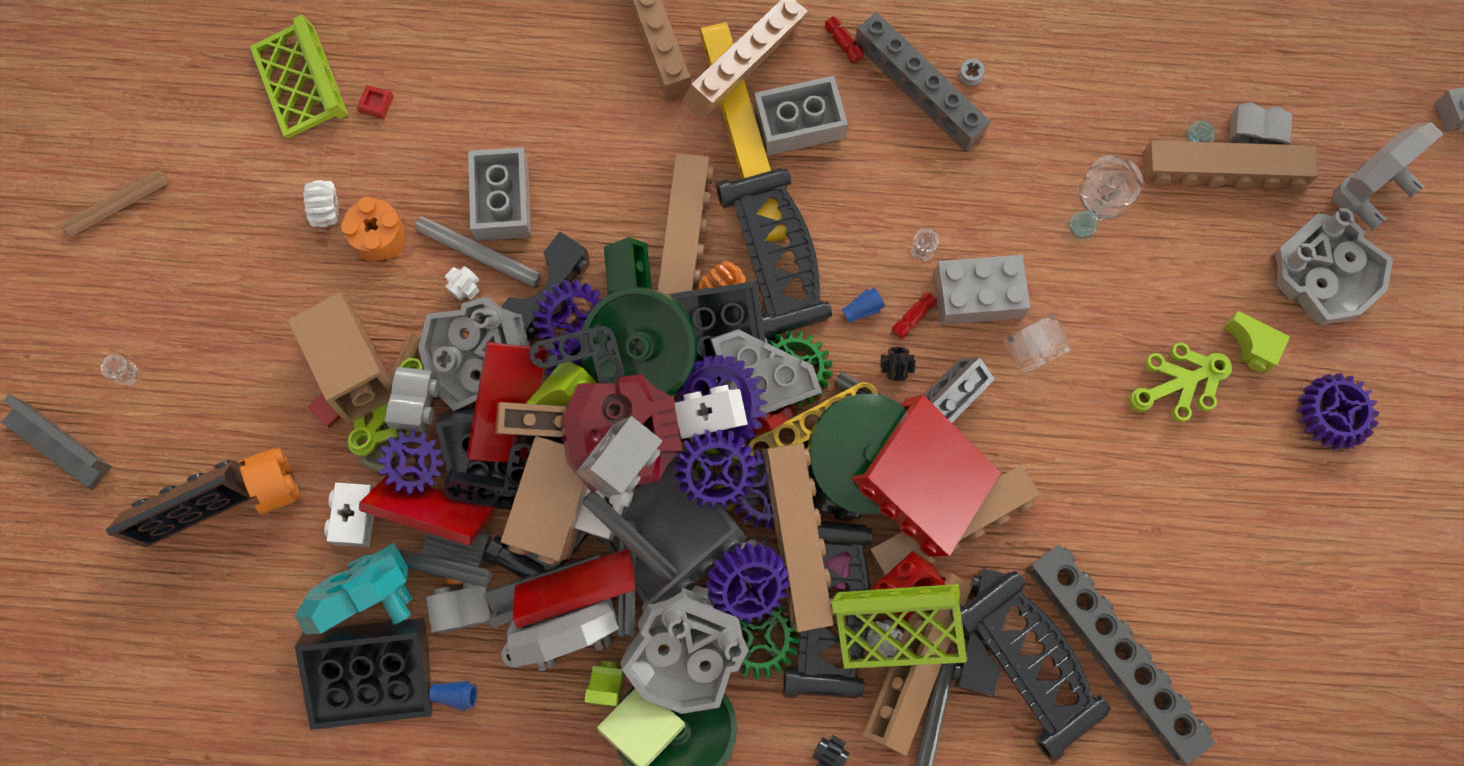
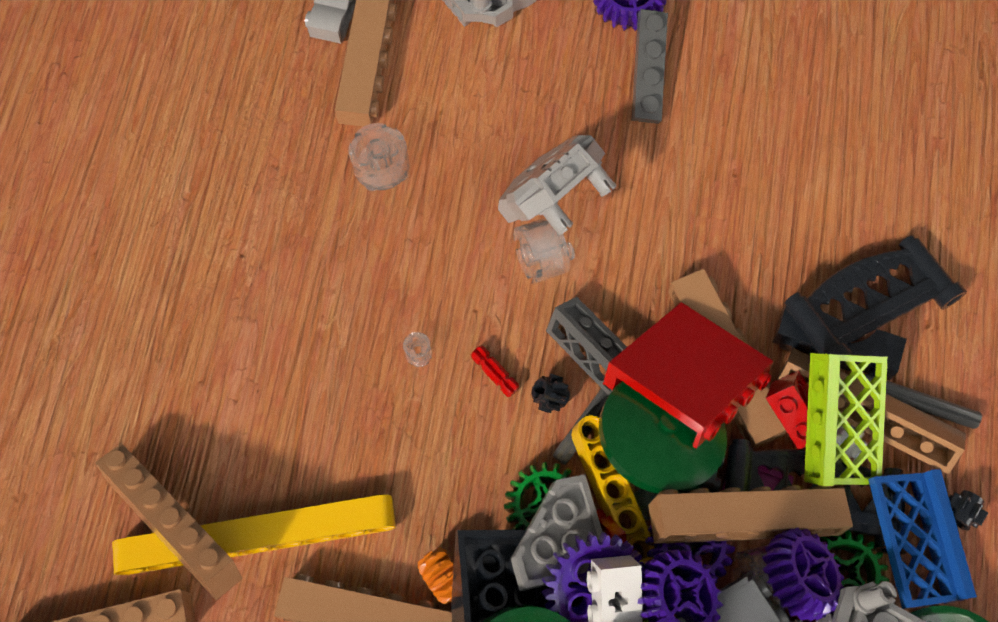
camera: 80 degrees left, 5 degrees down
(747, 197) = (344, 534): black piece -> none
(800, 115) = (247, 466): light grey brick -> none
(803, 730) = (939, 534): none -> blue fence
(844, 39) = (157, 409): red axle -> none
(864, 305) = (480, 421): blue cone -> none
(921, 82) = (225, 330): dark grey brick -> none
(972, 63) = (227, 269): light grey bush -> none
(981, 289) = (476, 298): light grey brick -> none
(1083, 224) = (412, 190): clear light blue plate -> none
(1107, 336) = (551, 178): none -> light grey brick
(1184, 380) = (589, 119): lime plant -> none
(1196, 734) = (941, 167): dark grey brick -> none
(1200, 132) = (329, 67): clear light blue plate -> none
(1256, 434) = (649, 66): none -> dark grey plate
(1259, 343) = (557, 49): lime arch -> none

